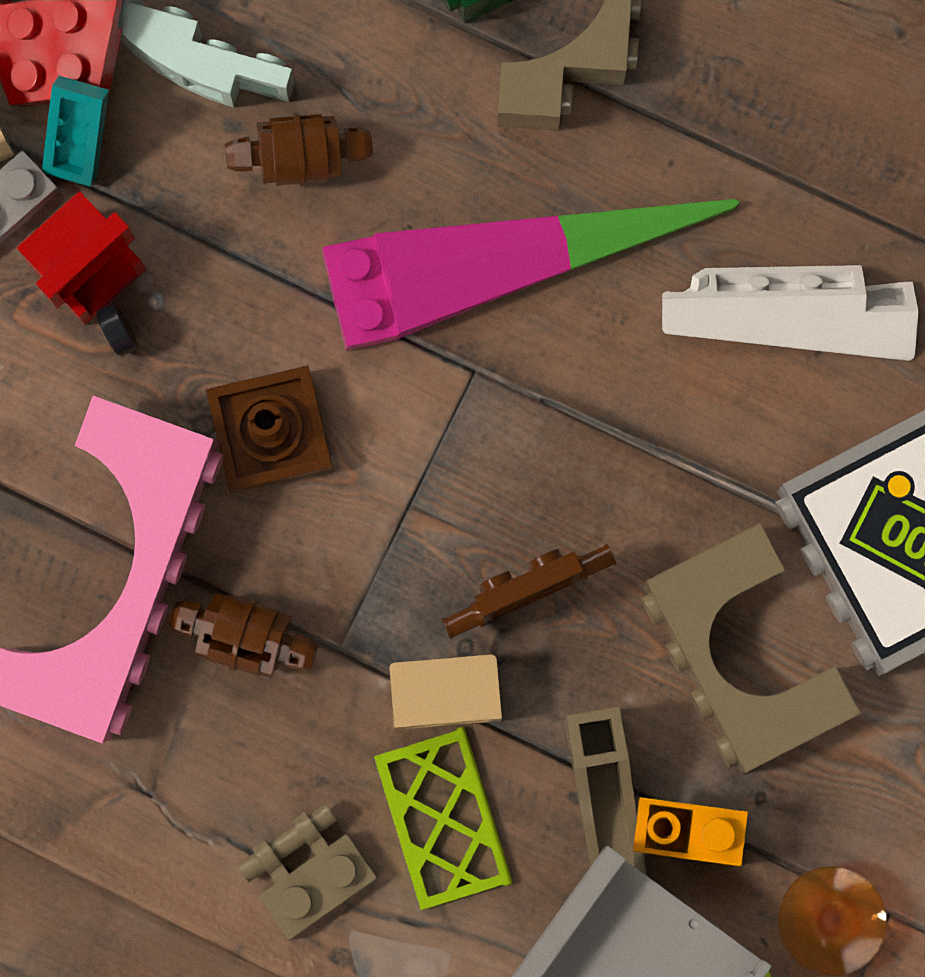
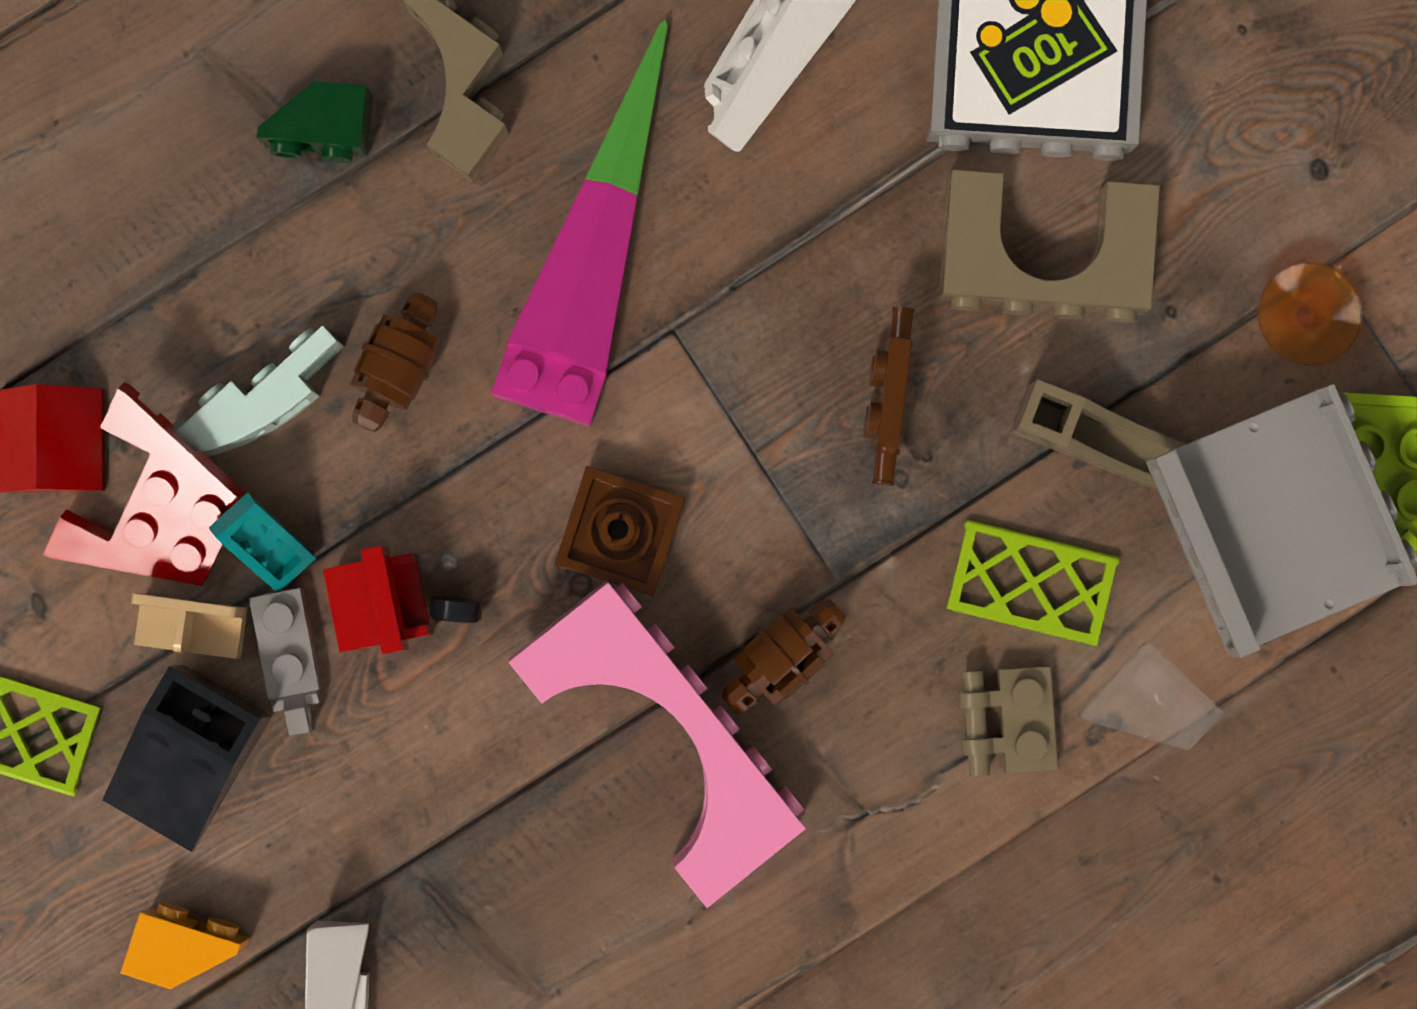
camera: 60 degrees left, 5 degrees up
(445, 692) = (933, 516): tan panel -> none
(690, 831) = (1172, 383): light orange slope -> none

